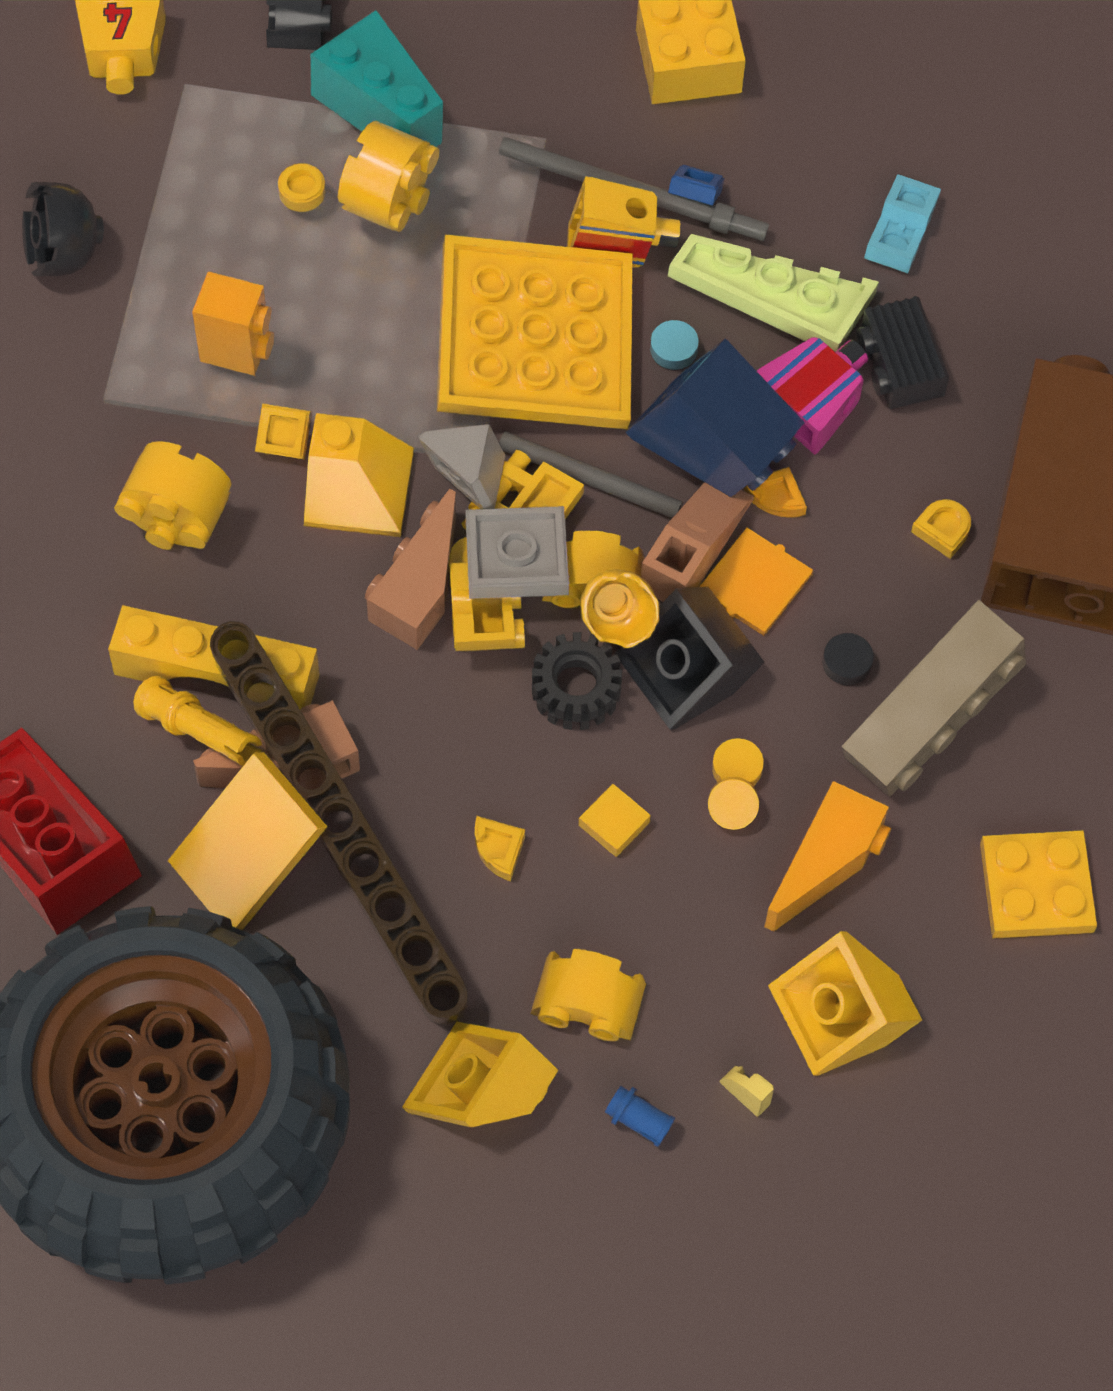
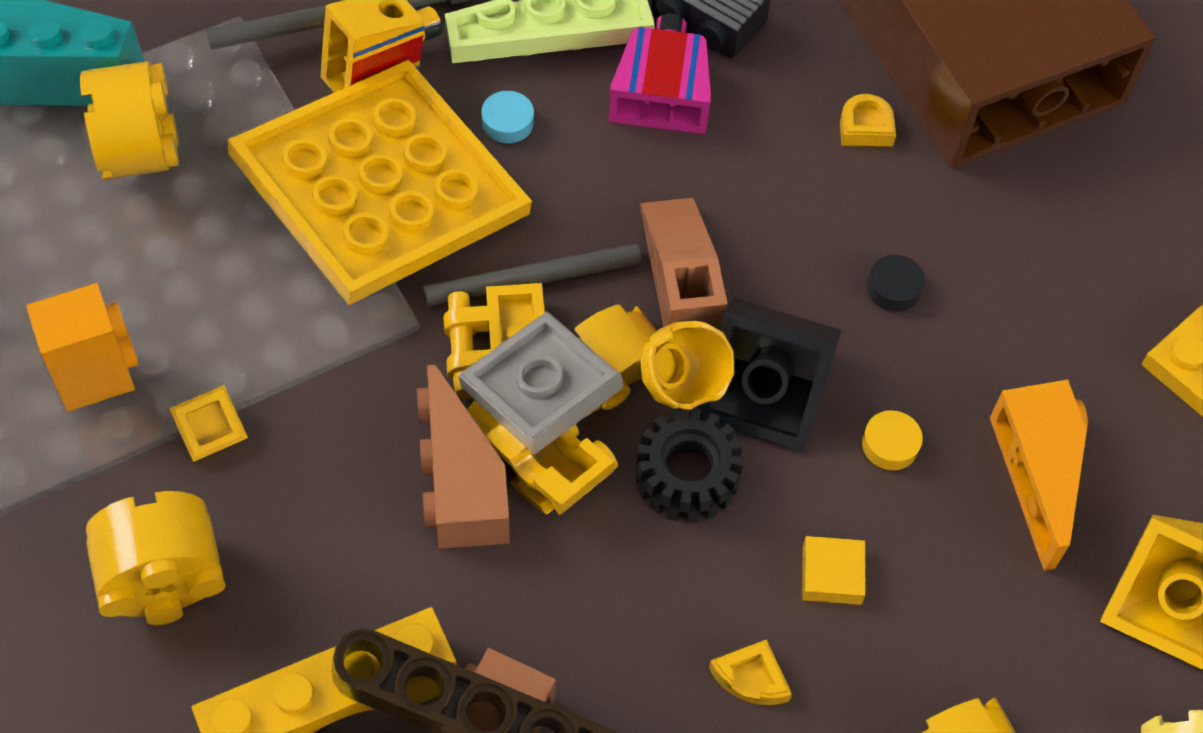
camera: 40 degrees left, 5 degrees down
(301, 187) = (42, 188): yellow tile -> none
(356, 477) = (316, 420): yellow slope -> none
(467, 459) = (416, 332): light grey slope -> none
(719, 422) = (614, 150): dark blue slope -> none
(733, 803) = (925, 476): yellow tile -> none
(757, 580) = (761, 266): light orange piece -> none
(779, 495) = (709, 184): light orange tile -> none
(936, 699) = (1014, 261): dark tan wedge -> none

